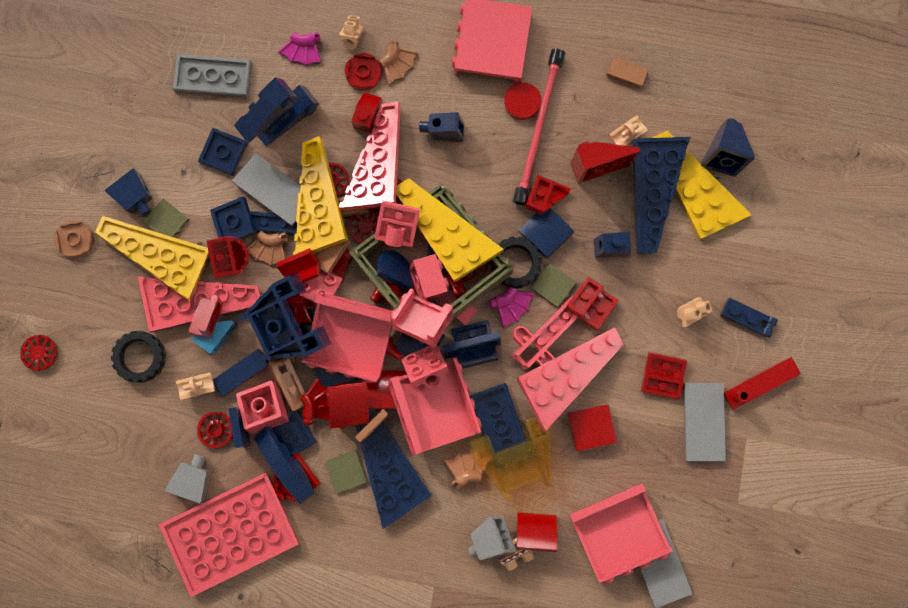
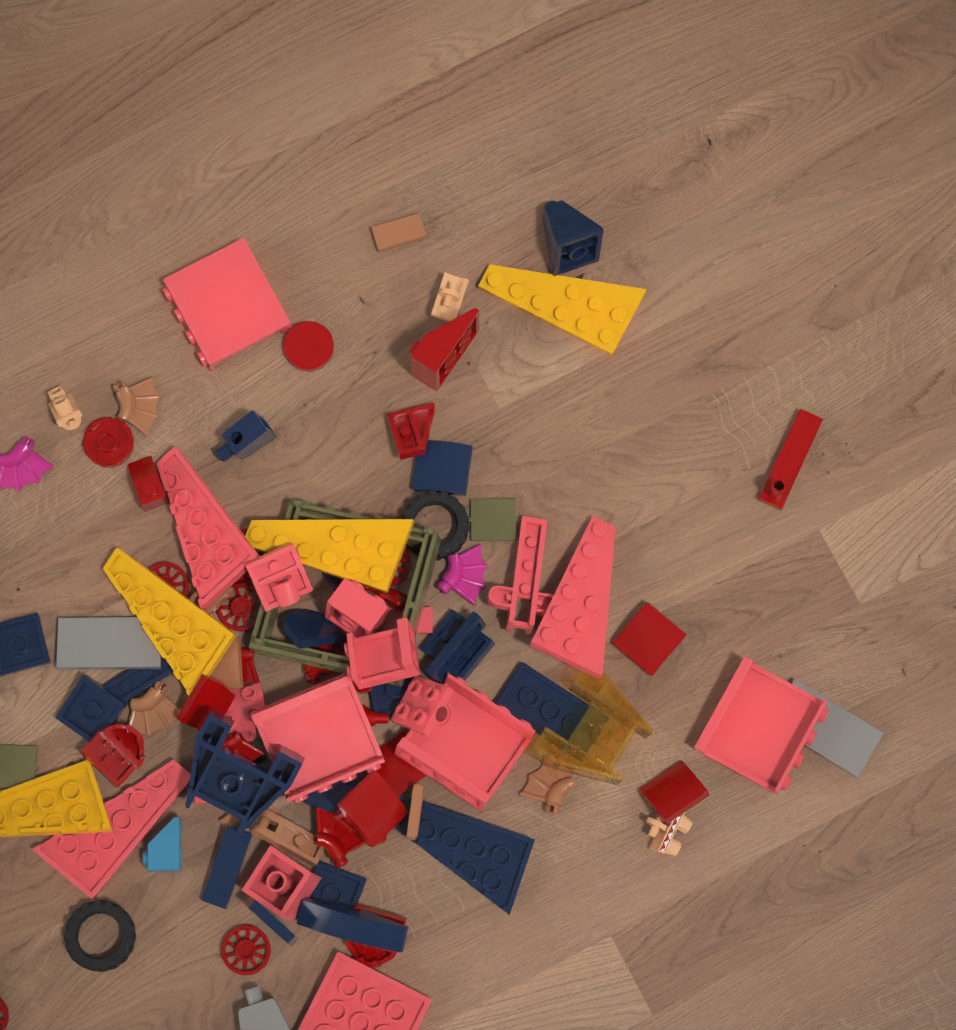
camera: 40 degrees left, 5 degrees down
(195, 386) = (189, 917): light nougat hips -> none
(206, 316) = (144, 833): panel -> none
(276, 111) = (54, 550): dark blue wedge -> none
(346, 471) = (423, 886): olive piece -> none
(491, 540) = (633, 835): light grey torso -> none
(555, 62) = (313, 278): coral hose -> none
(592, 304) = (550, 508): red slope -> none
(612, 245) = (524, 429): dark blue torso -> none
(655, 183) = (519, 331): dark blue wing -> none
(664, 375) = (682, 527): red slope -> none
(693, 311) = (662, 436): light nougat hips -> none
(704, 422) = (761, 545): light grey tile -> none
(748, 317) = (724, 400): dark blue plate -> none

